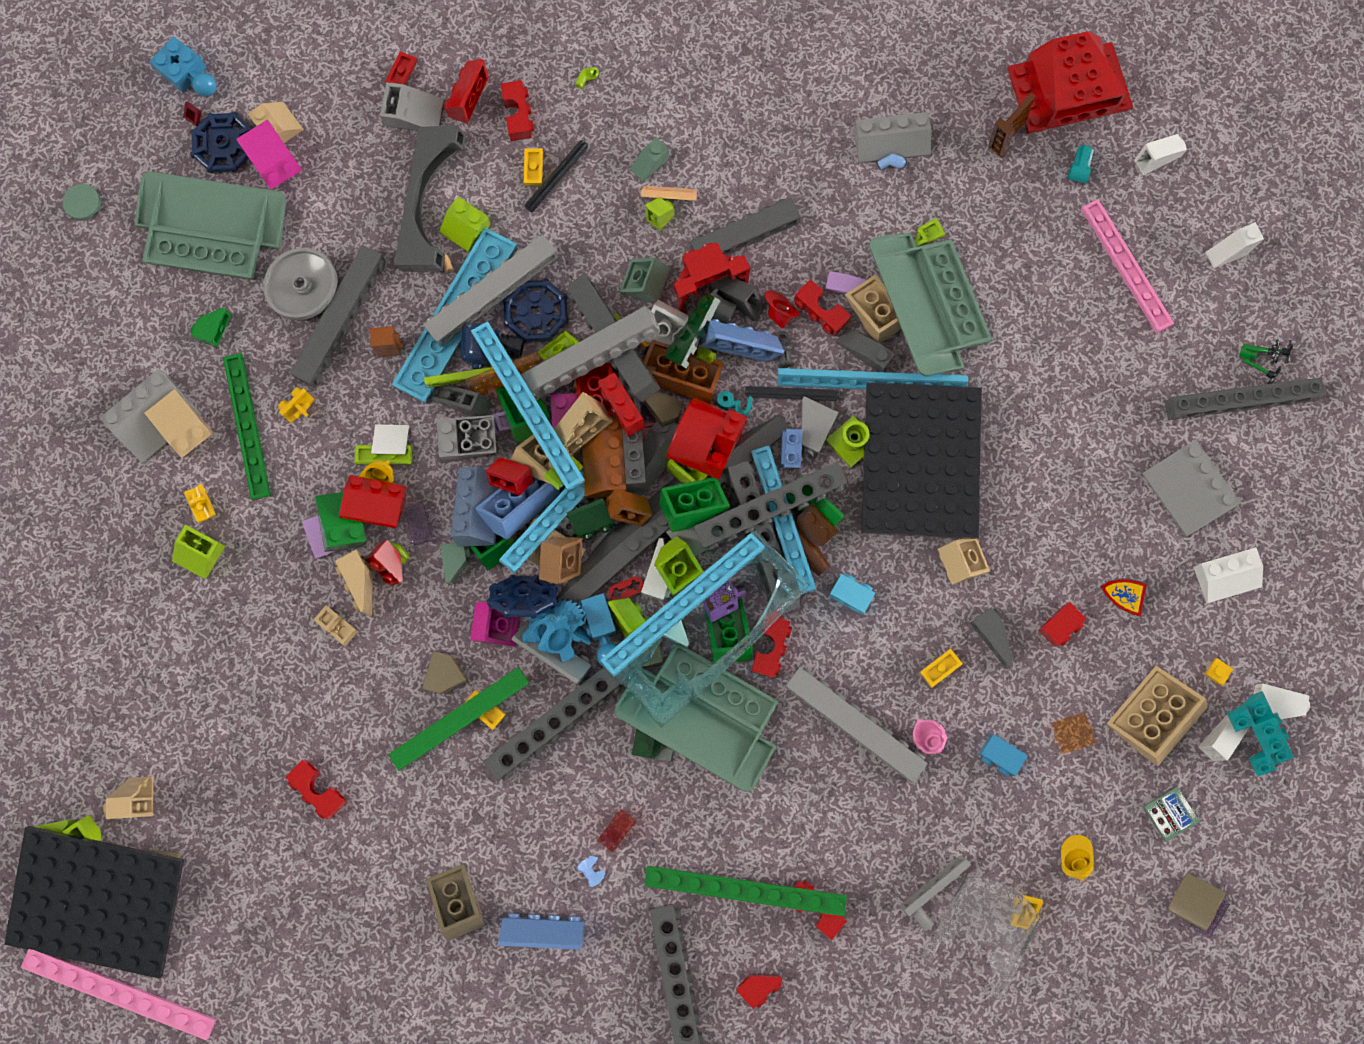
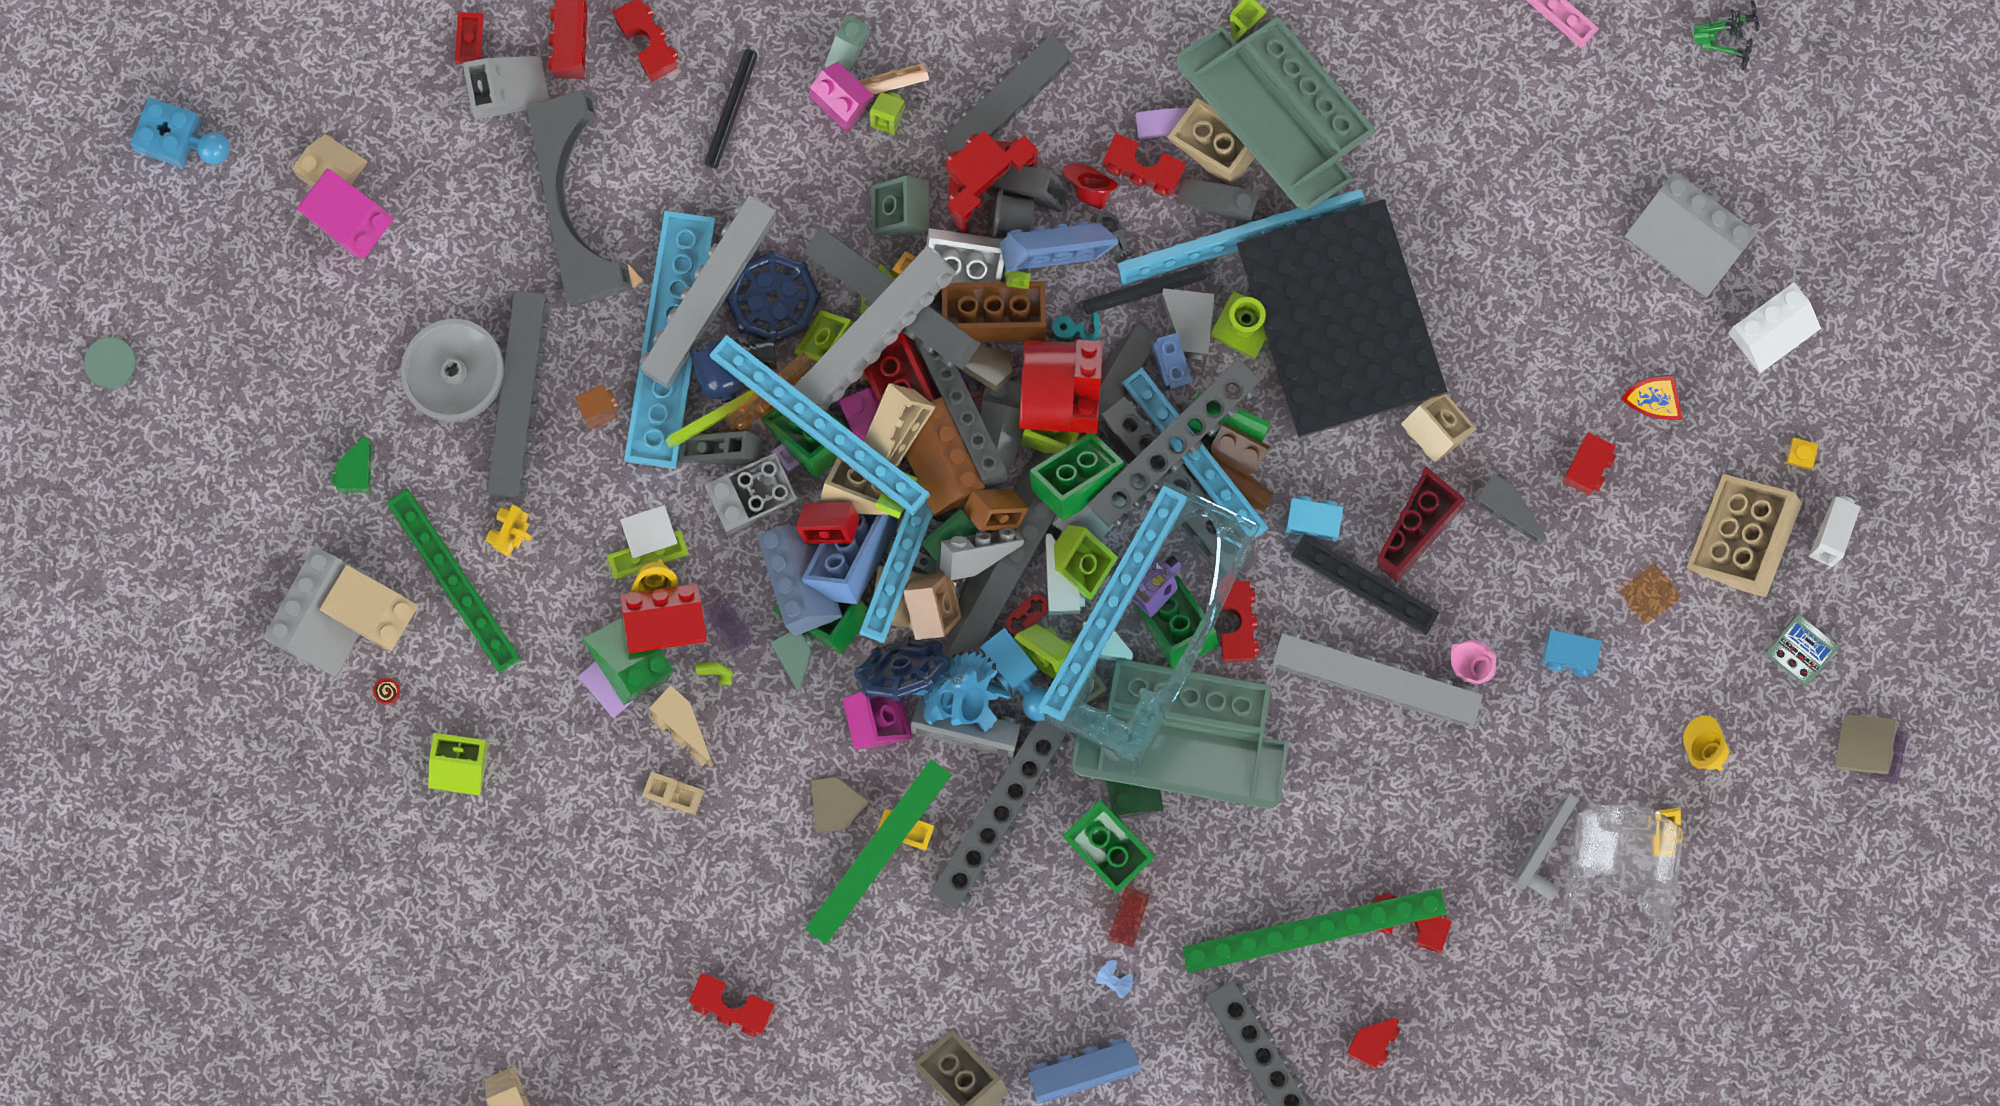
camera: 25 degrees left, 0 degrees up
(172, 485) = (386, 691): none -> tile
(192, 114) = (211, 193): dark red slope -> none
(200, 503) = (436, 701): yellow hips -> none
(207, 223) = (294, 333): sand green slope -> none
(213, 136) = (253, 210): dark blue plate -> none
(386, 562) = (709, 690): slope -> none
(463, 224) = (635, 216): lime slope -> none
(533, 167) = (696, 107): yellow plate -> none
(602, 533) = (972, 554): none -> light grey slope
(621, 404) = (938, 382): red brick -> none
(621, 776) = (1109, 846): none -> green slope
(631, 189) = (840, 95): none -> dark pink slope
(693, 329) = (989, 265): dark green wing -> none
(871, 653) = (1365, 585): none -> black plate
(925, 624) = (1422, 520): none -> dark red wedge
(940, 668) = (1457, 572): yellow plate -> none
(1244, 398) = (1719, 96): dark grey brick -> none
(1265, 724) = (1875, 497): teal bracket -> none
(1284, 702) = (1885, 468): white slope -> none

